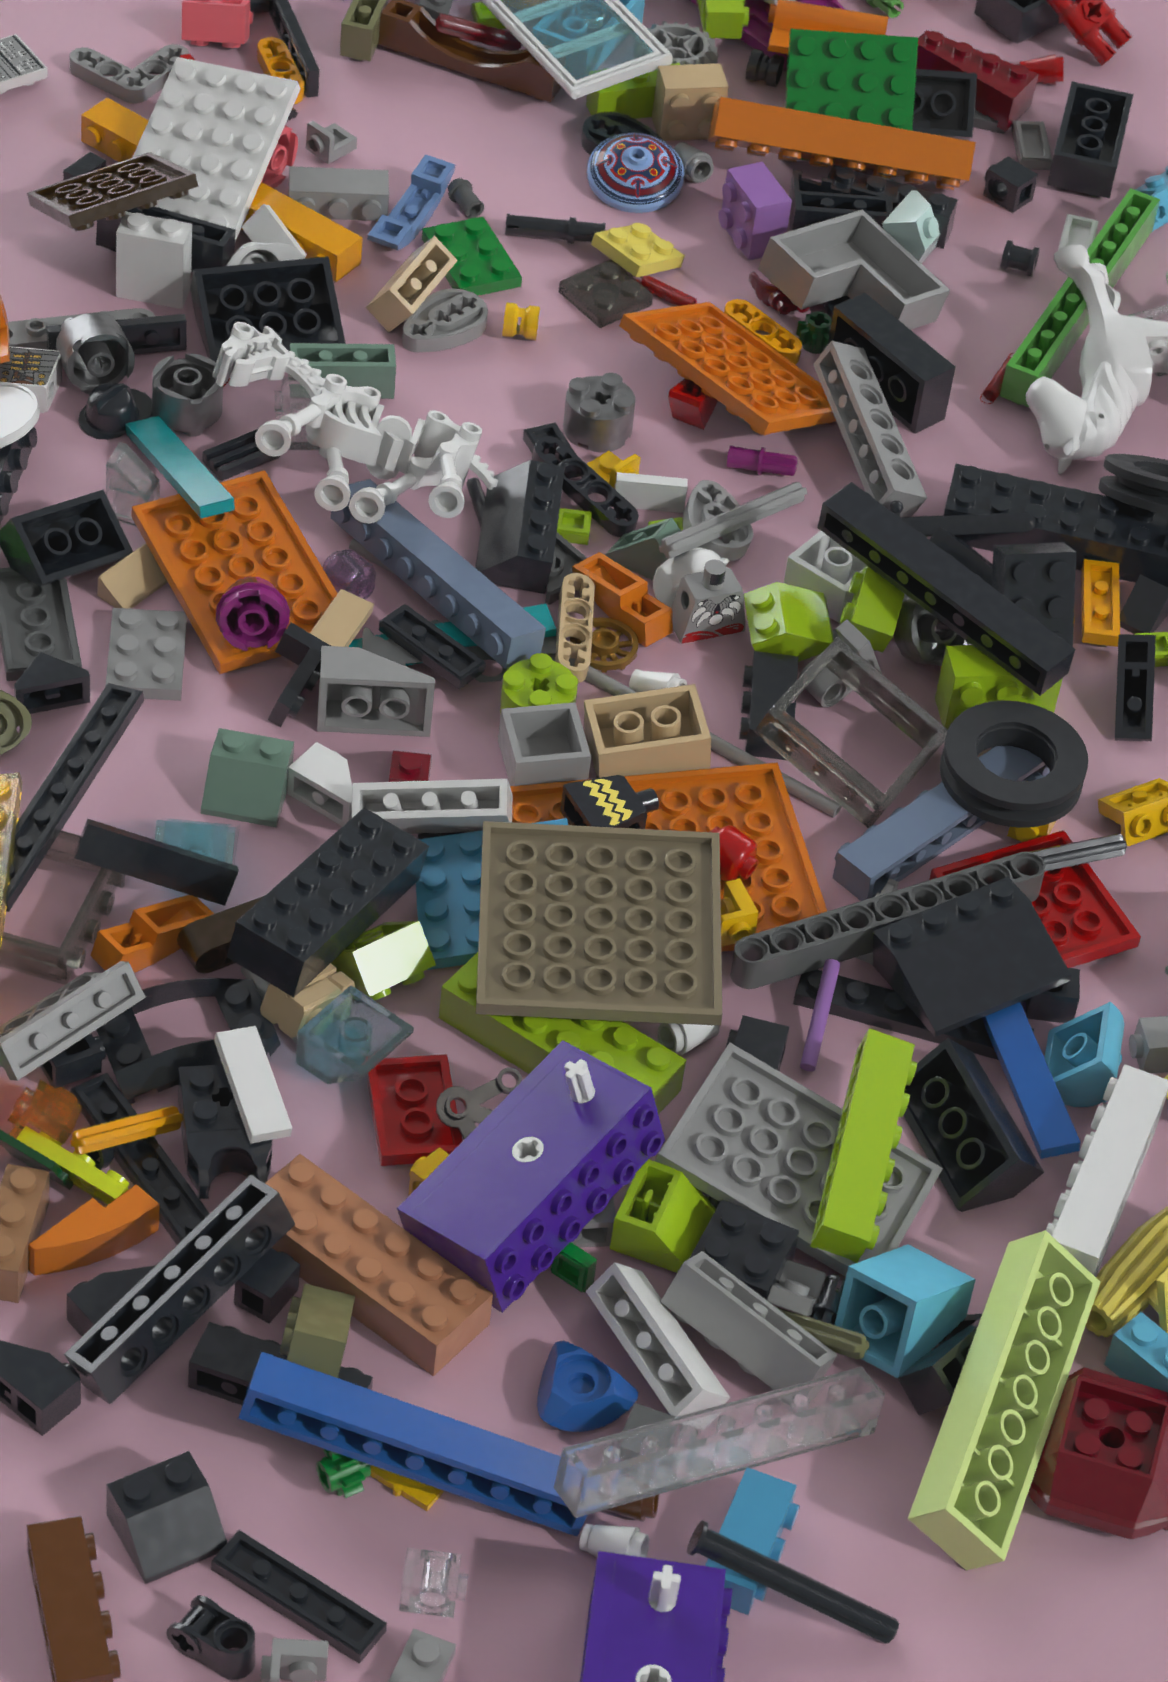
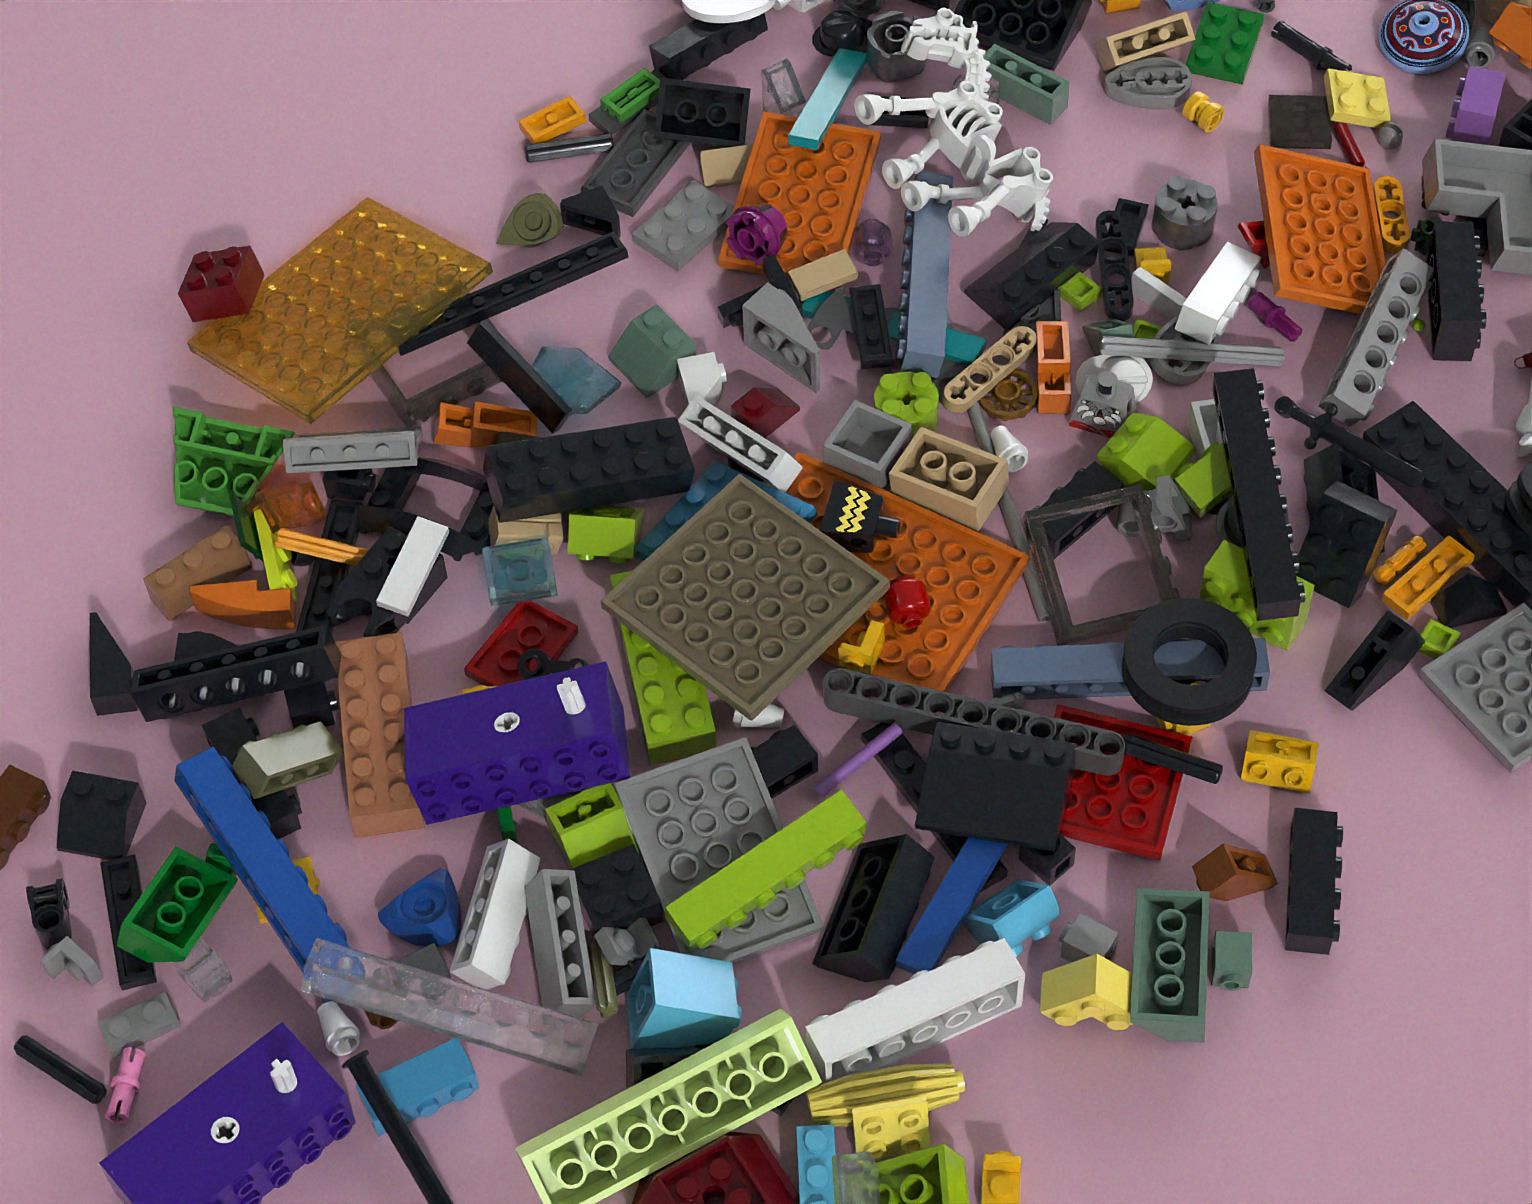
camera: 50 degrees right, 10 degrees up
(355, 1541) = (175, 909): none -> green slope
(692, 268) = (1390, 135): none -> light grey hinge
(708, 460) = (1219, 293): none -> white brick

